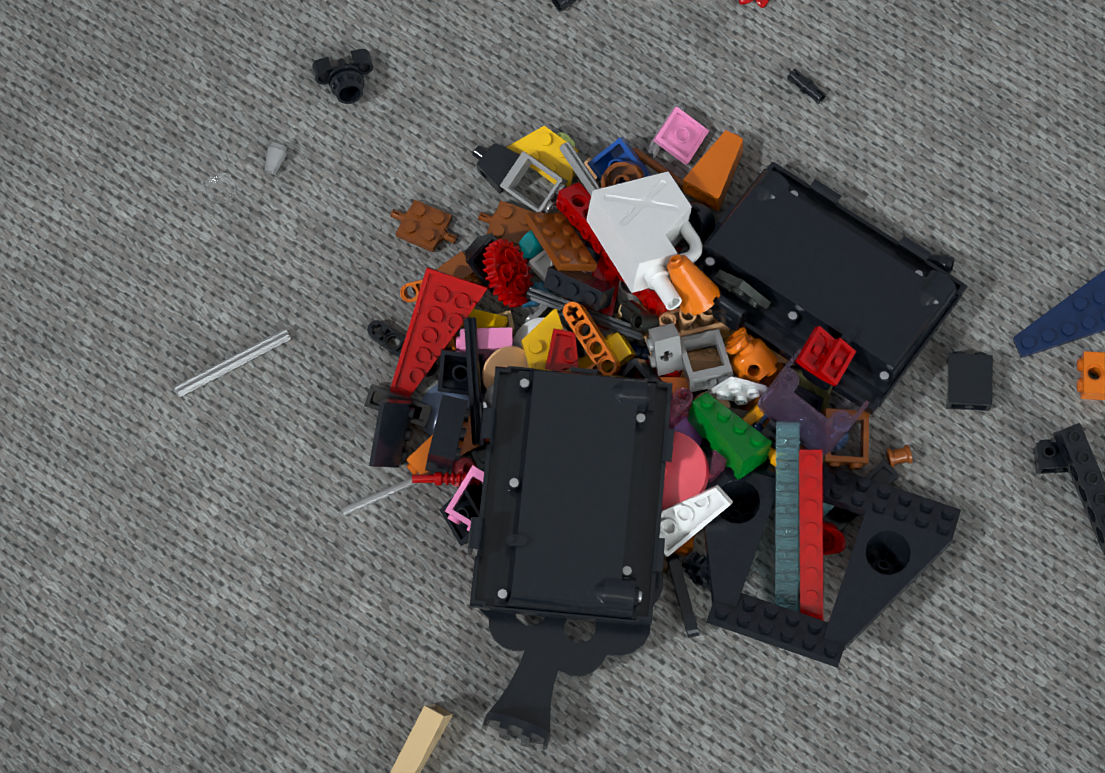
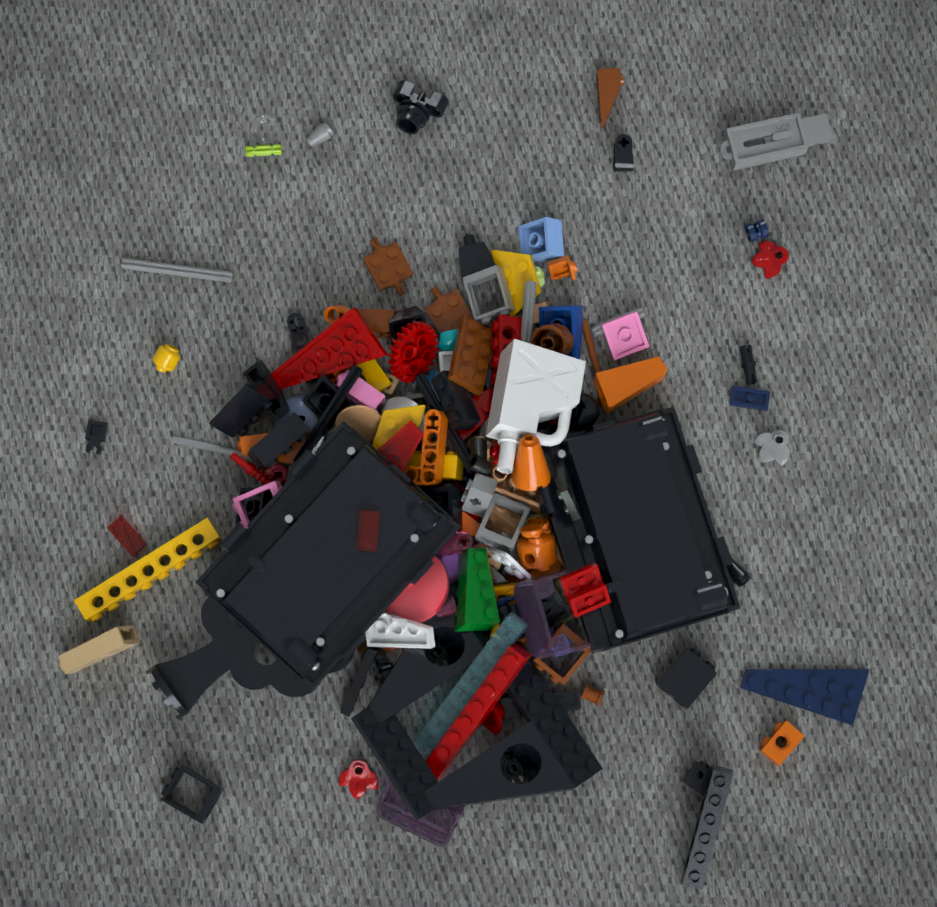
camera: 30 degrees right, 10 degrees up
(232, 206) = (263, 150): none -> lime axle
(268, 557) = (96, 433): none -> black plate
(282, 444) = (166, 358): none -> yellow head
(367, 626) = (127, 536): none -> clear red plate
(435, 567) = (86, 602): none -> yellow brick
(543, 107) = (542, 239): none -> light blue slope
(580, 119) = (561, 268): none -> orange bracket
(595, 438) = (368, 531): none -> clear red plate
(753, 687) = (358, 781): none -> red plate
(816, 681) = (433, 827): none -> clear purple windscreen
(830, 112) = (749, 398): none -> dark blue plate
(883, 140) = (771, 449): none -> light grey plate

